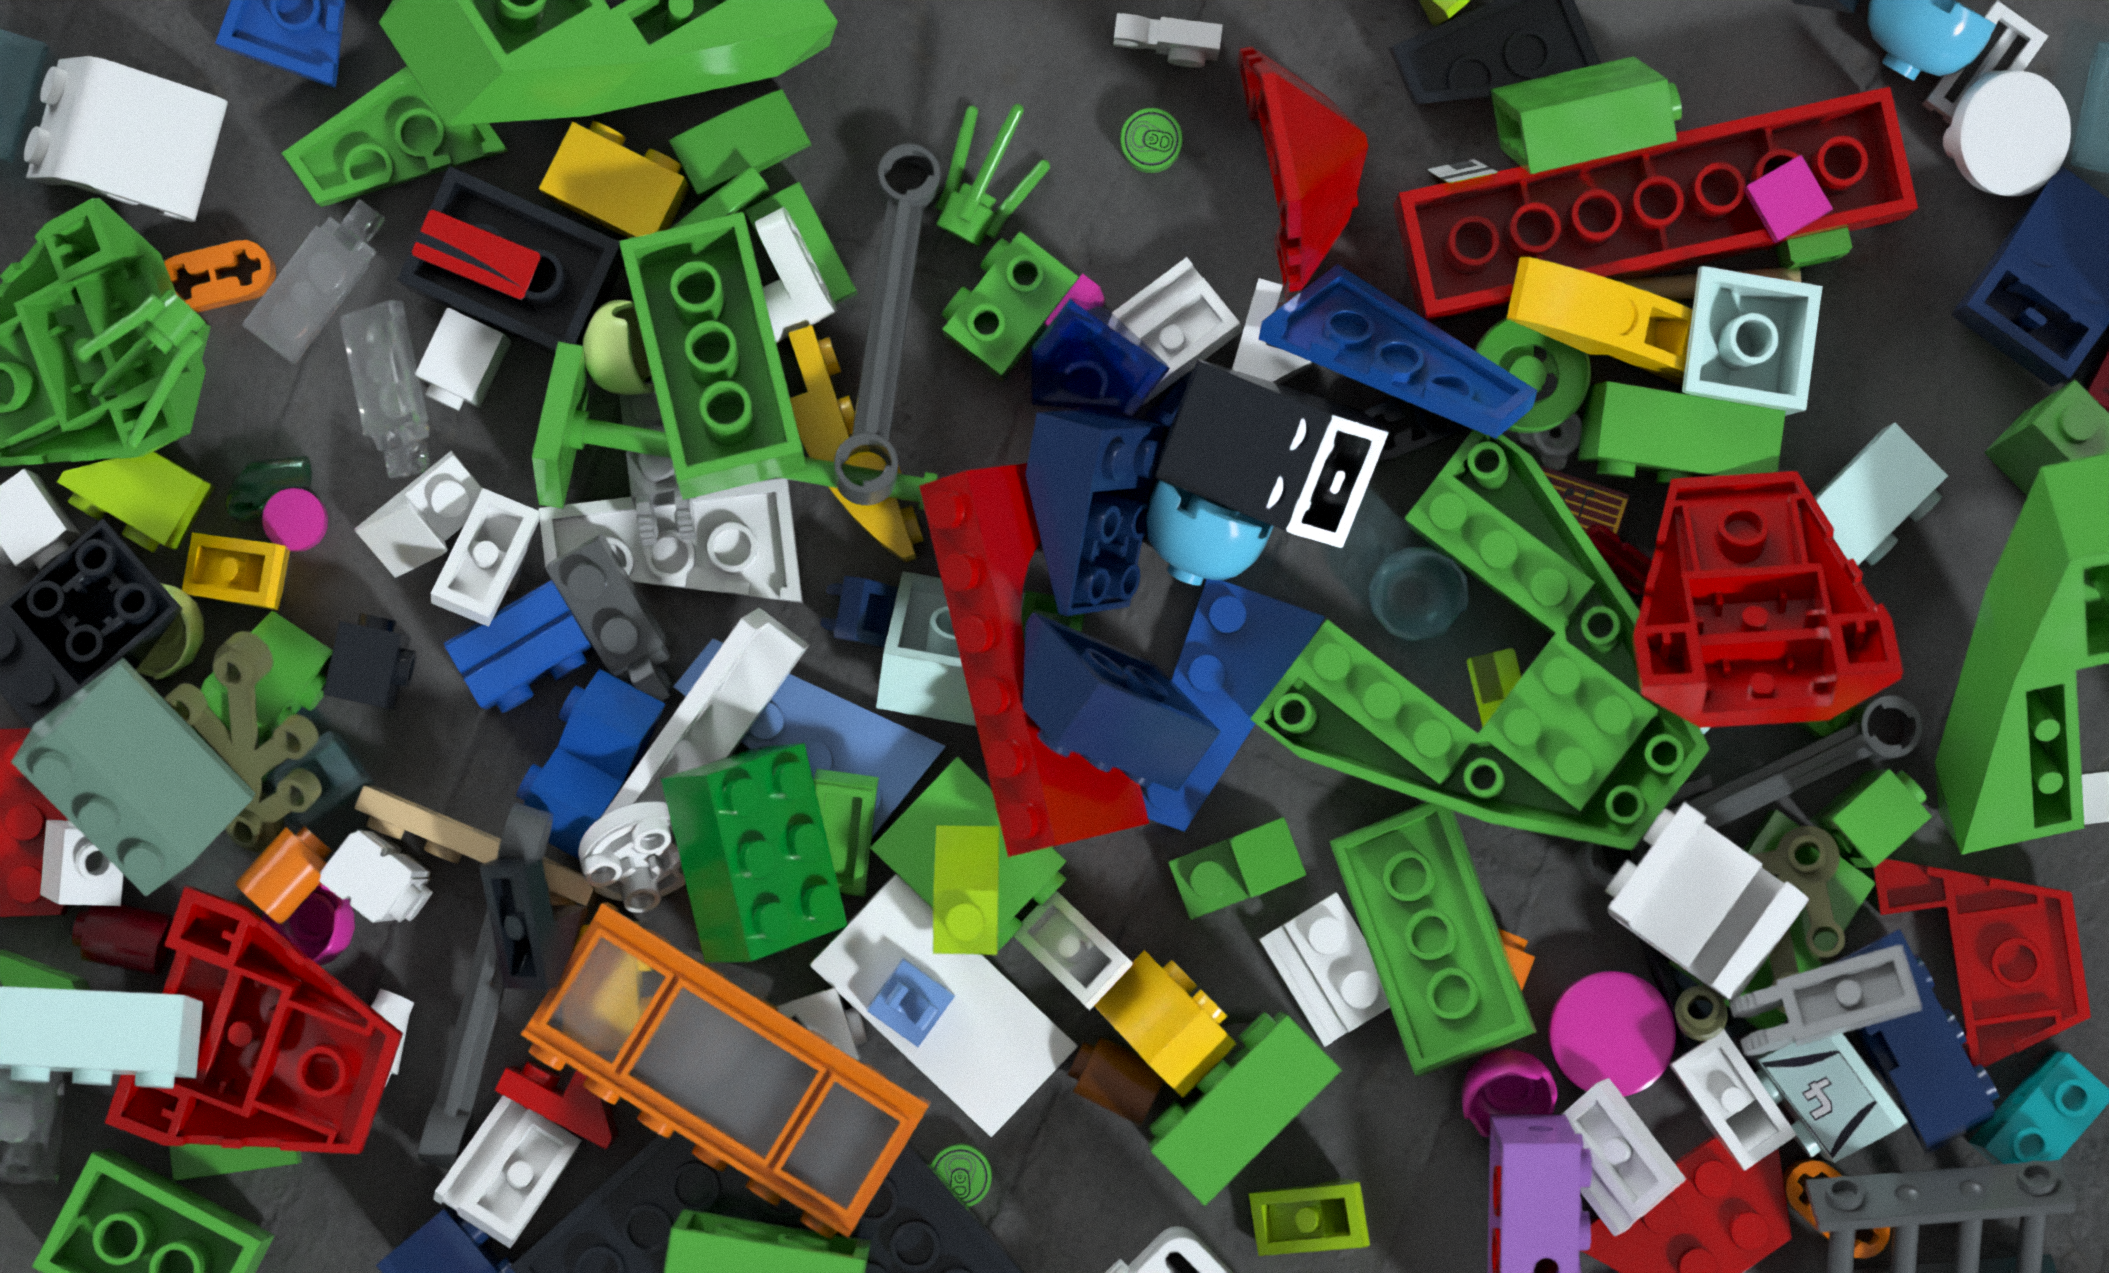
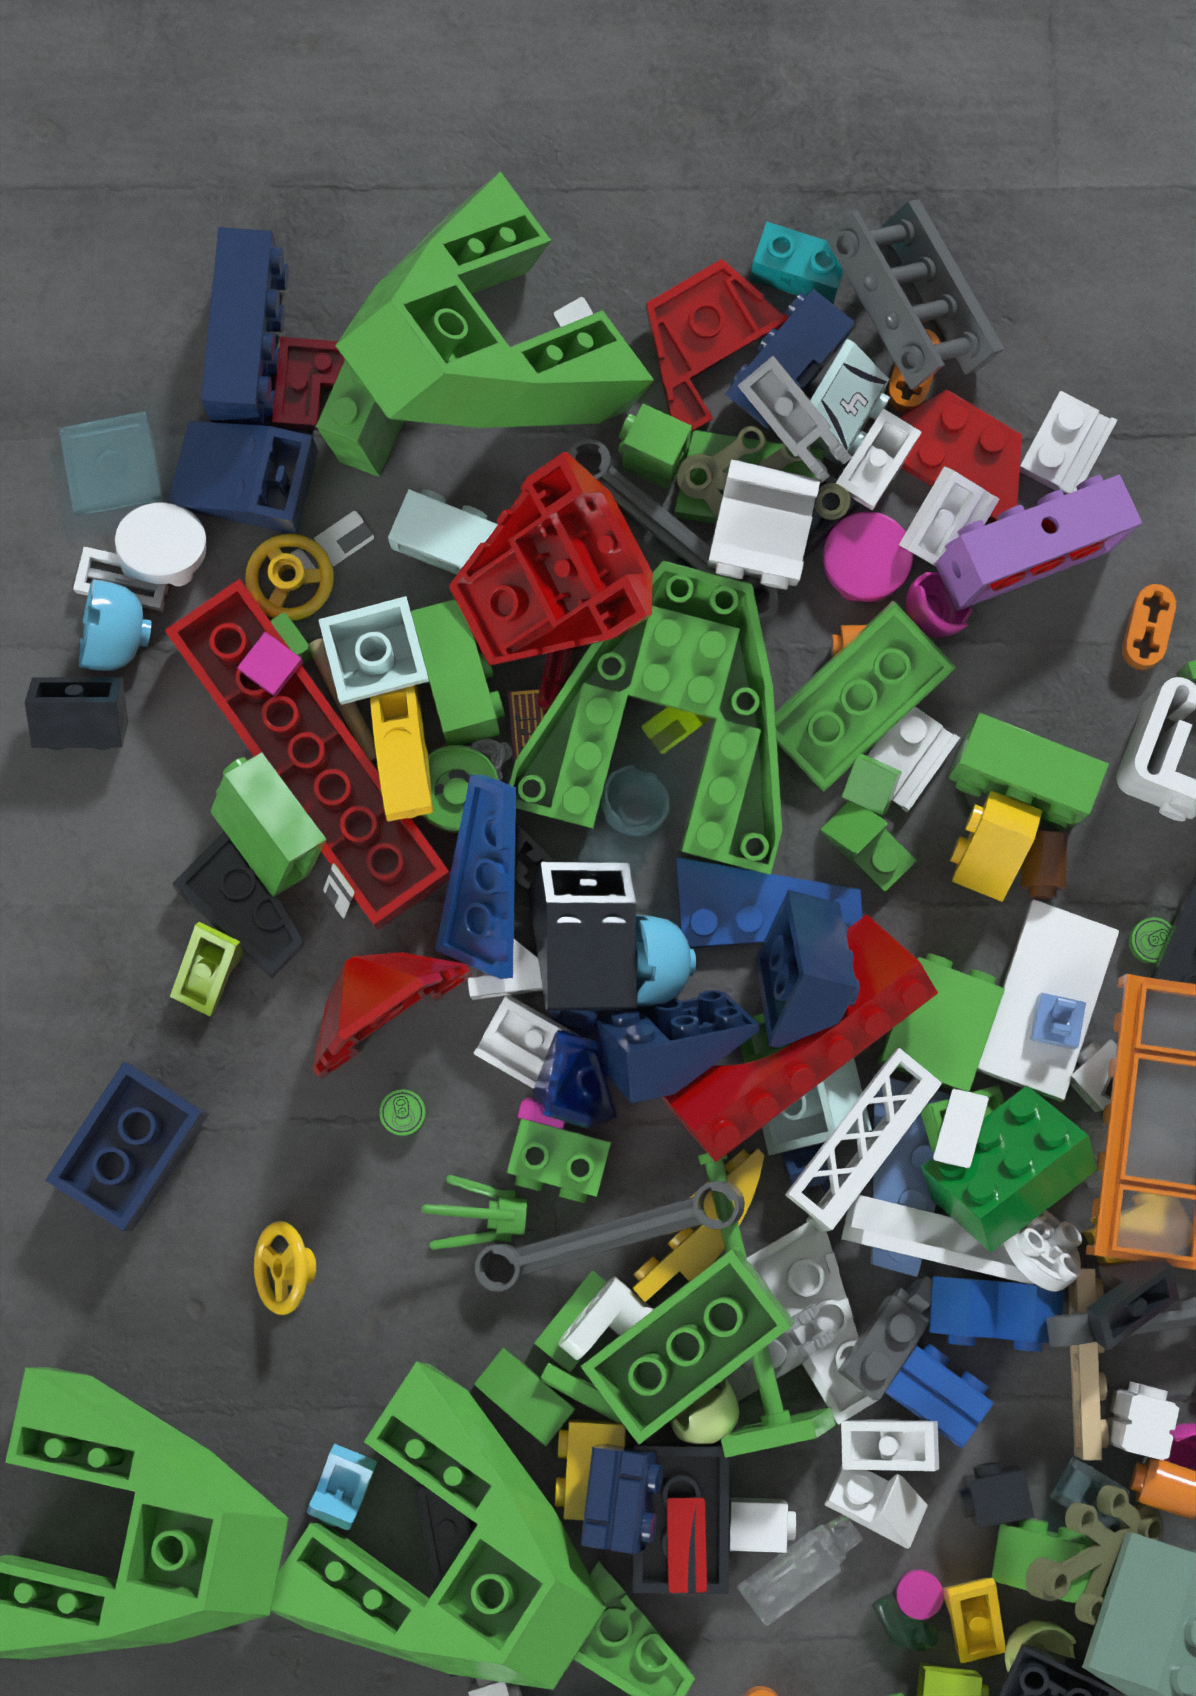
camera: 115 degrees left, 5 degrees down
(315, 282) = (750, 1655): clear hinge -> none
(565, 195) = (620, 1499): none -> dark blue brick
(829, 812) = (961, 1128): none -> white sticker
(849, 695) = (871, 1151): none -> white fence
(966, 890) = (971, 1012): lime slope -> none
(1072, 949) = (974, 926): white slope -> none
(1184, 41) = (326, 1117): white plate -> none
(1309, 1218) = (1077, 698): lime slope -> none
(1312, 903) = (871, 784): none -> bright green tile
(1915, 266) = (282, 562): none -> yellow piece
(1916, 351) = (338, 541): none -> white sticker

